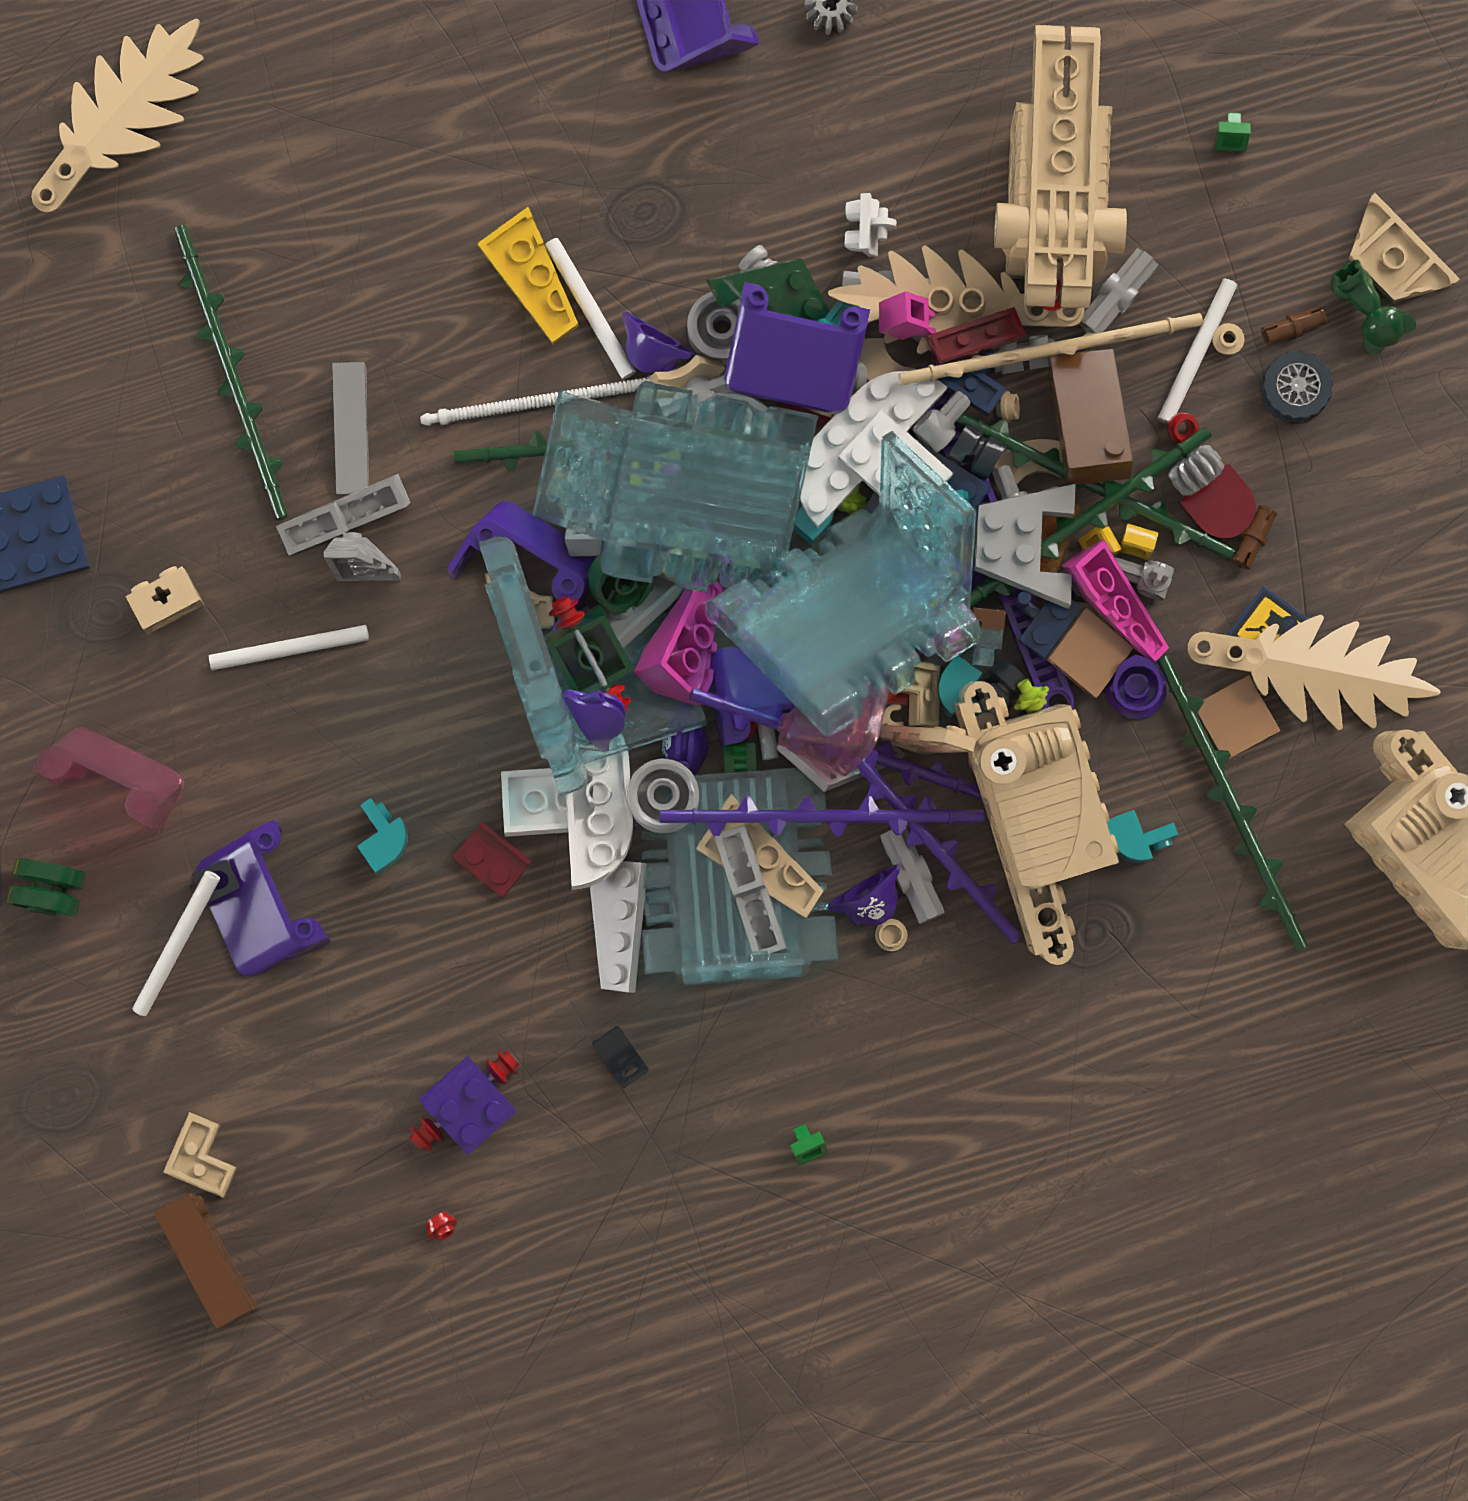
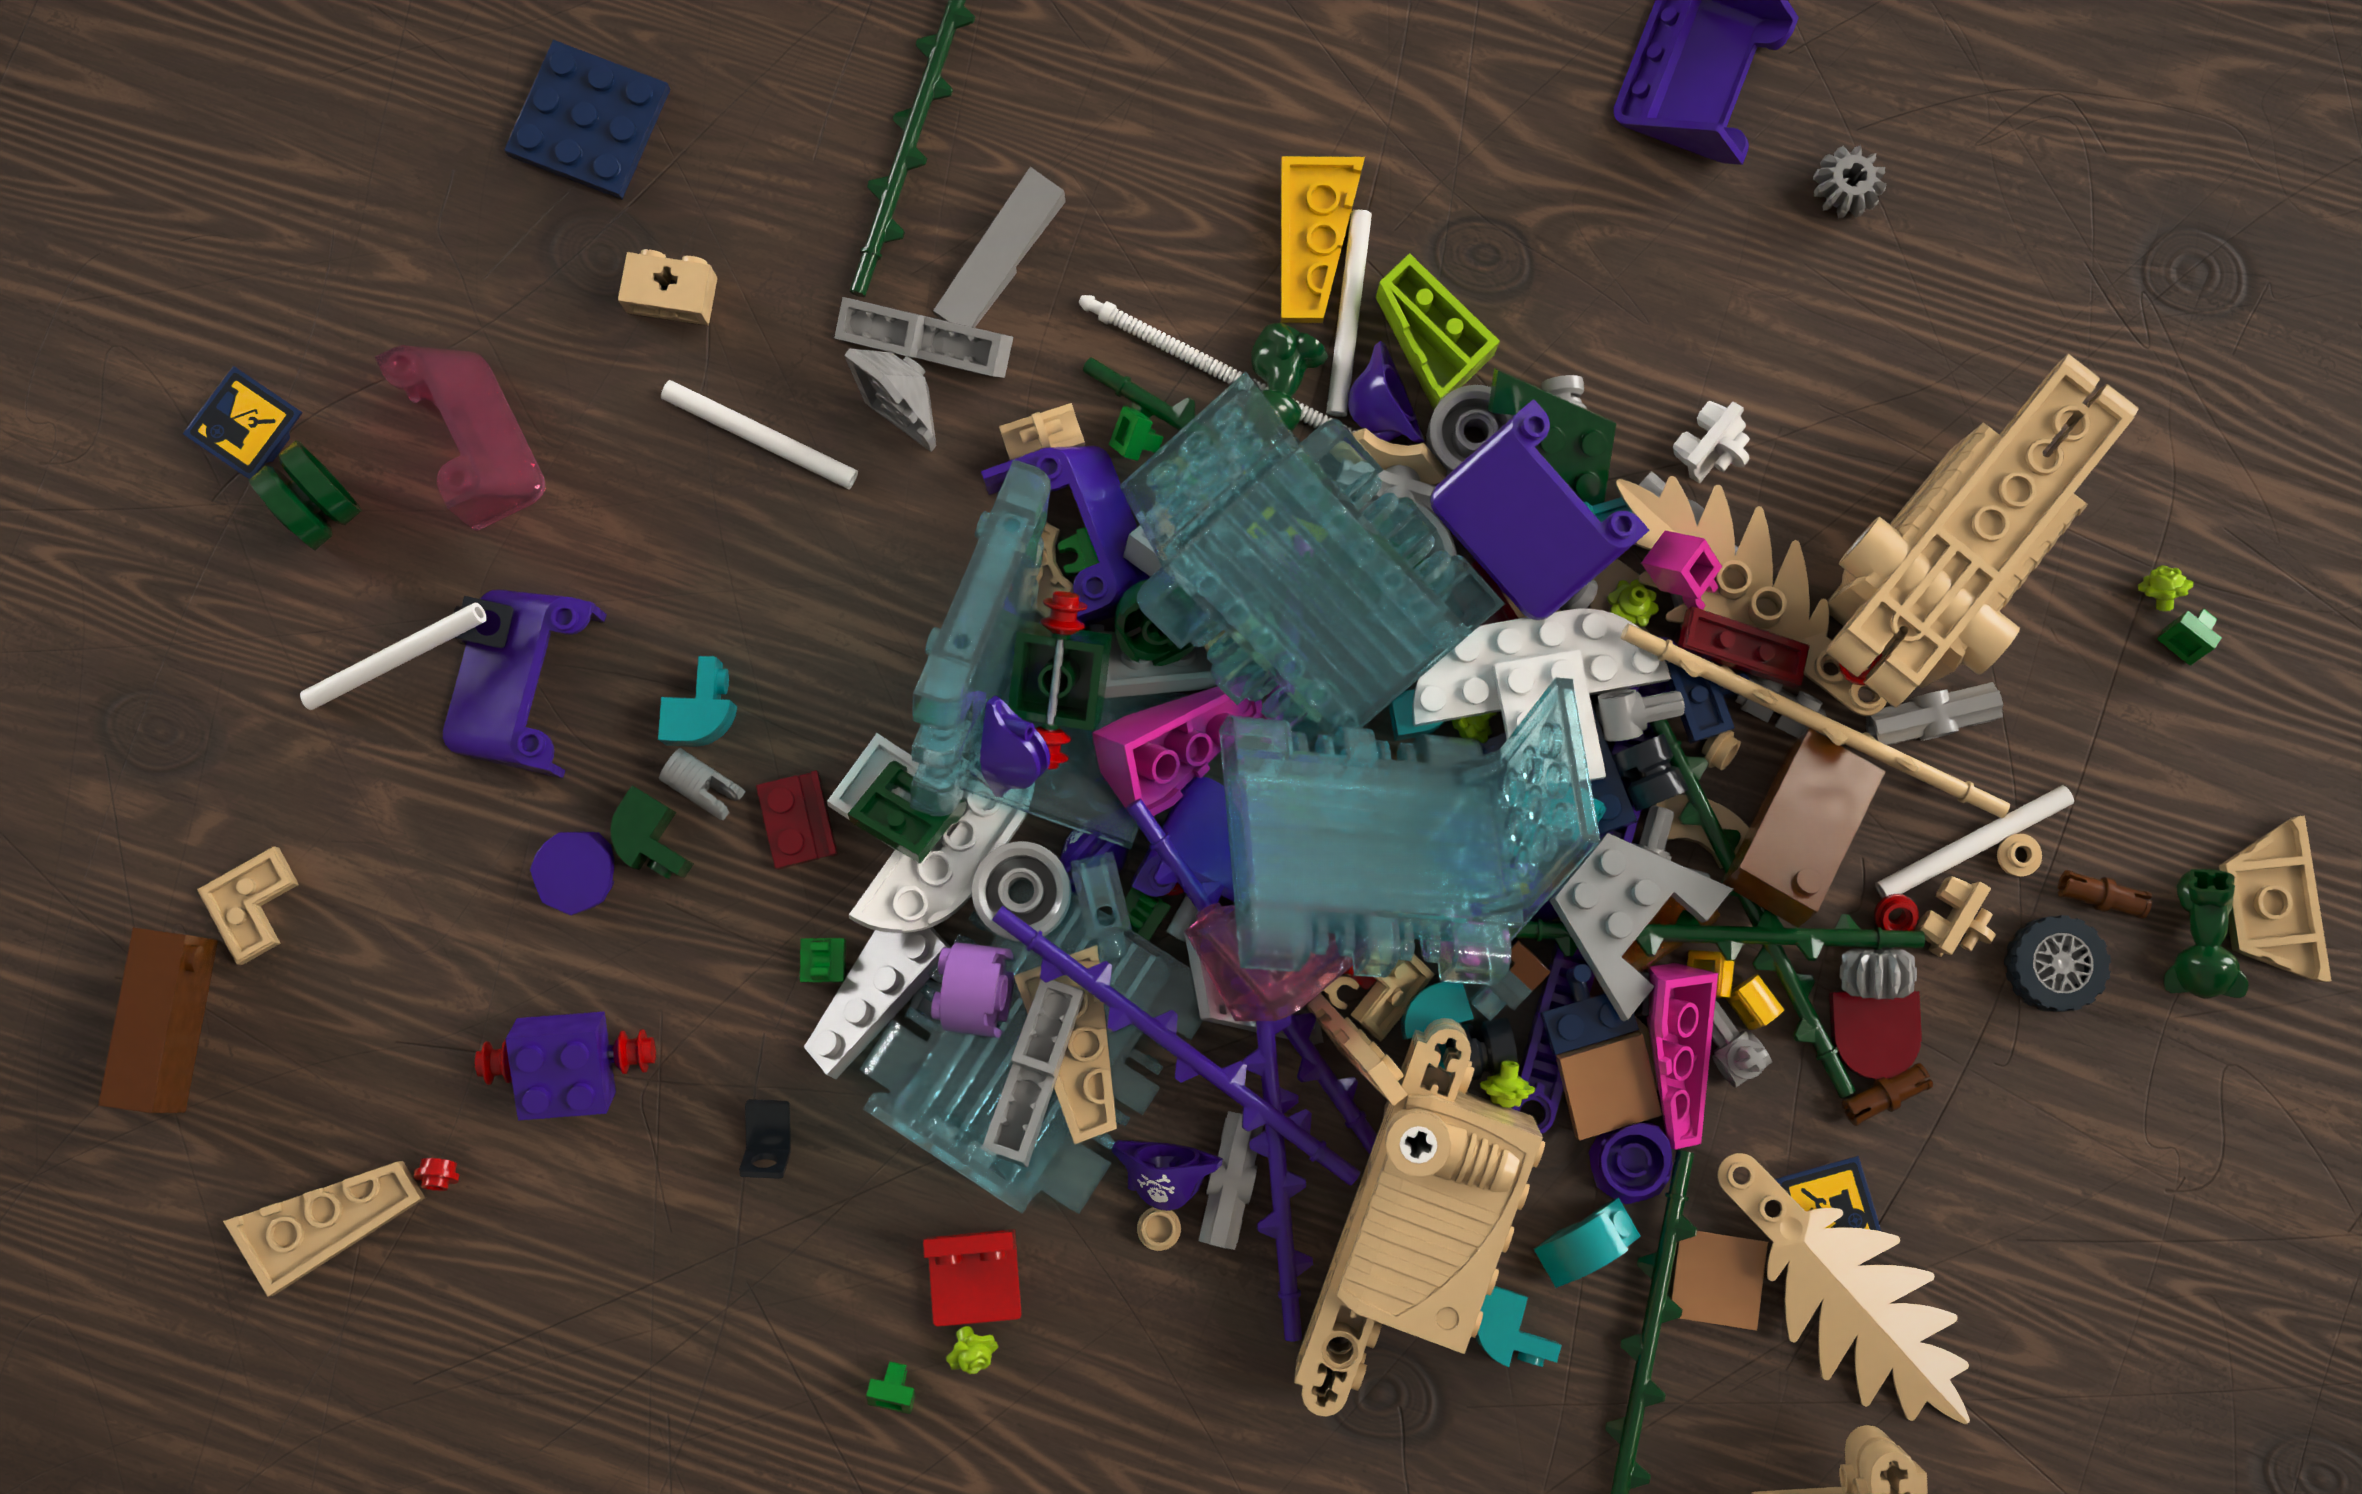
camera: 35 degrees right, 0 degrees up
(384, 989) = (573, 871): none -> dark purple hat
(390, 1317) = (310, 1229): none -> tan wing
(401, 935) = (636, 833): none -> dark green brick
(410, 881) = (694, 778): none -> light grey hinge
(462, 518) = (1042, 430): none -> tan hips
(518, 478) = (1134, 434): none -> green tile
(542, 569) = (1082, 546): none -> green tile
(553, 811) = (894, 821): none -> dark green plate
(571, 367) = (1280, 360): none -> dark green animal
(572, 930) = (822, 960): none -> green tile
(650, 281) = (1433, 329): none -> lime wedge
(680, 872) = (973, 989): none -> medium lavender brick
(705, 756) = (1098, 886): none -> clear light blue torso
(804, 1044) = (974, 1277): none -> red bracket
(836, 1087) = (971, 1351): none -> lime plant
(891, 358) = (1633, 602): none -> lime plant
(1145, 754) = (1587, 1244): none -> teal brick
(1196, 115) = (2165, 586): none -> lime plant
(1216, 389) = (1966, 901): none -> tan hips

